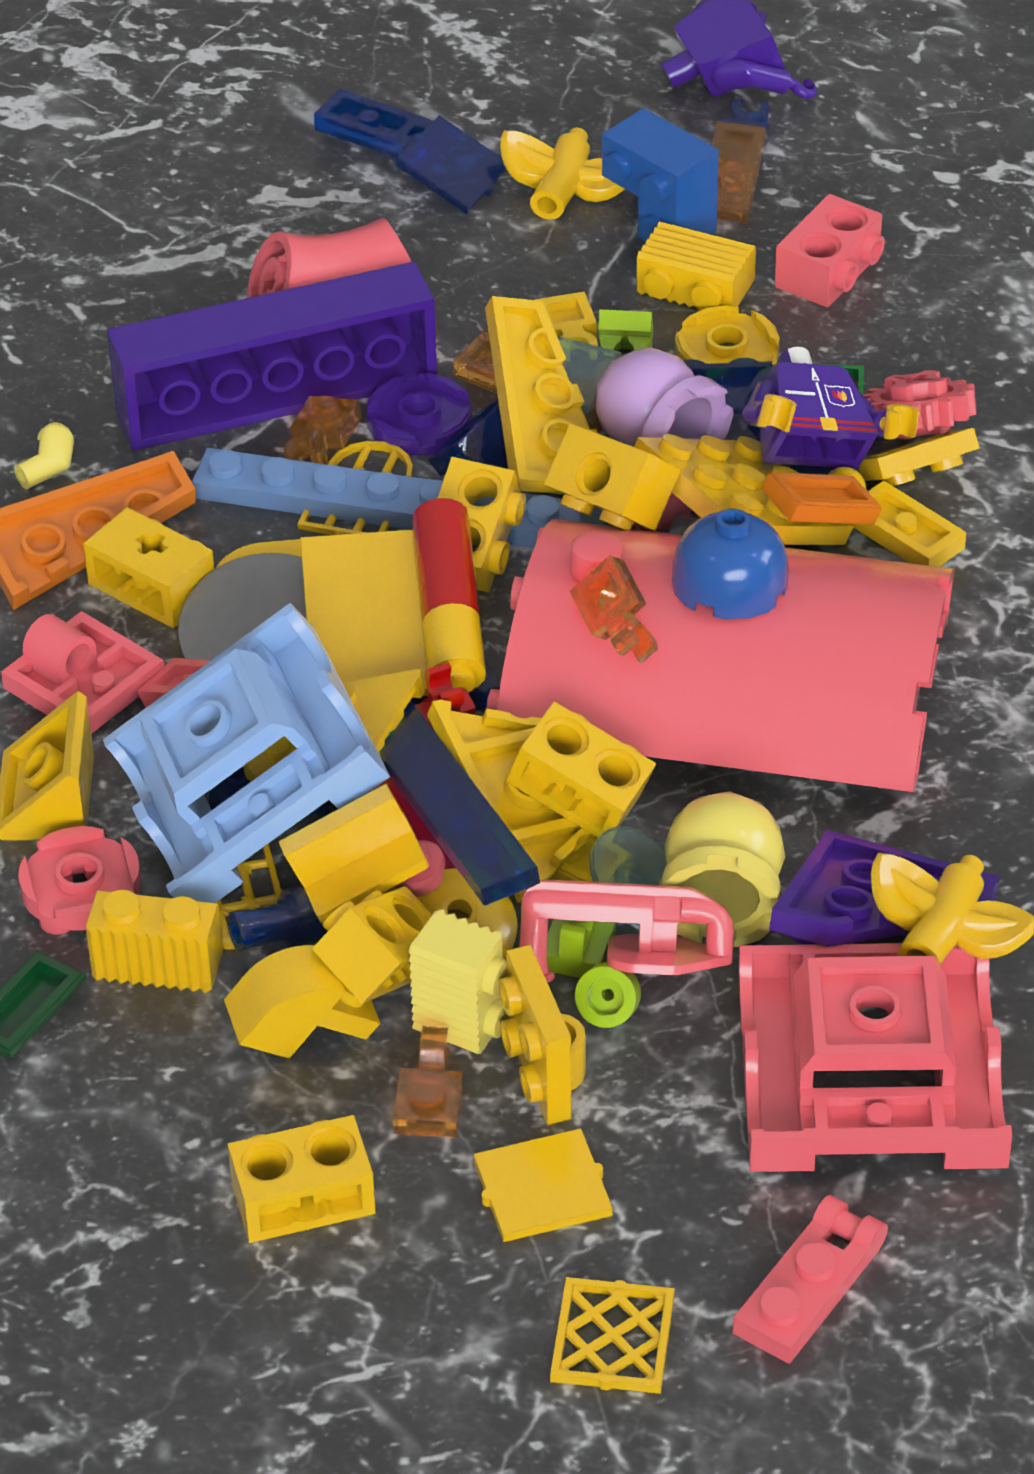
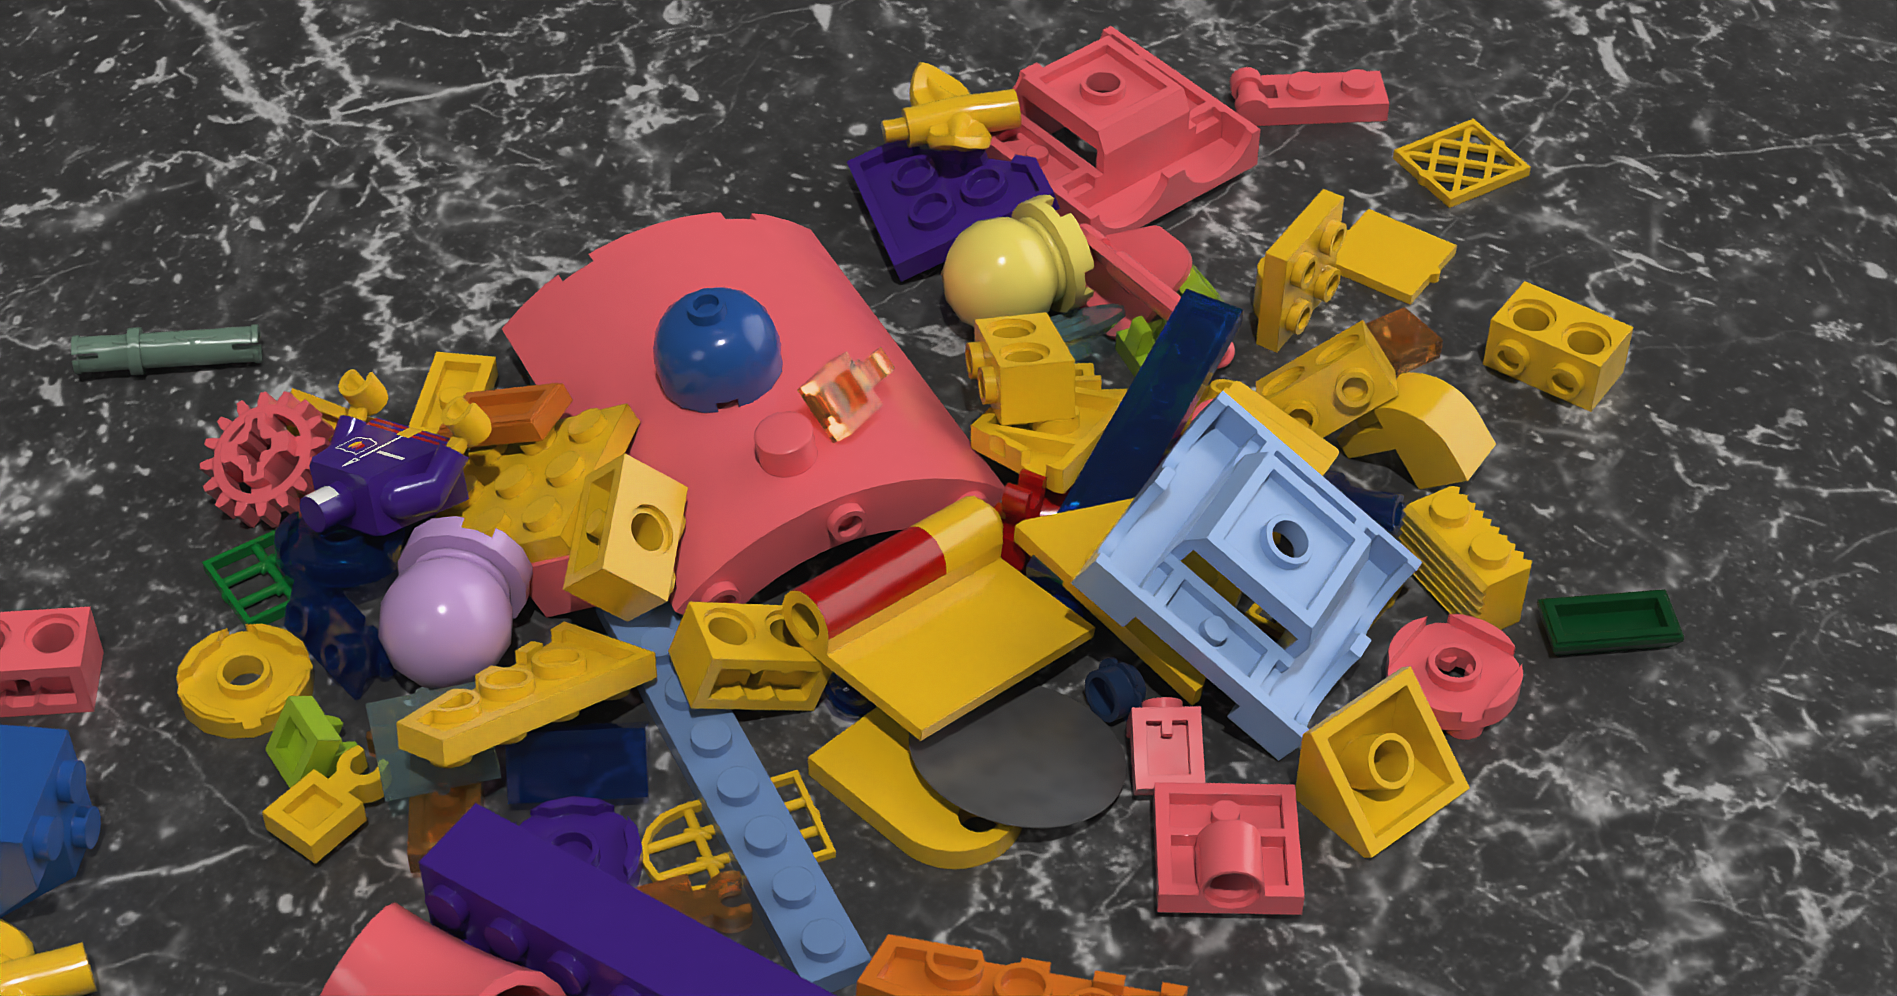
camera: 130 degrees left, 0 degrees up
(146, 565) = (1035, 890): yellow brick -> none
(458, 980) = (1302, 314): light yellow brick -> none
(694, 267) = (140, 750): yellow brick -> none

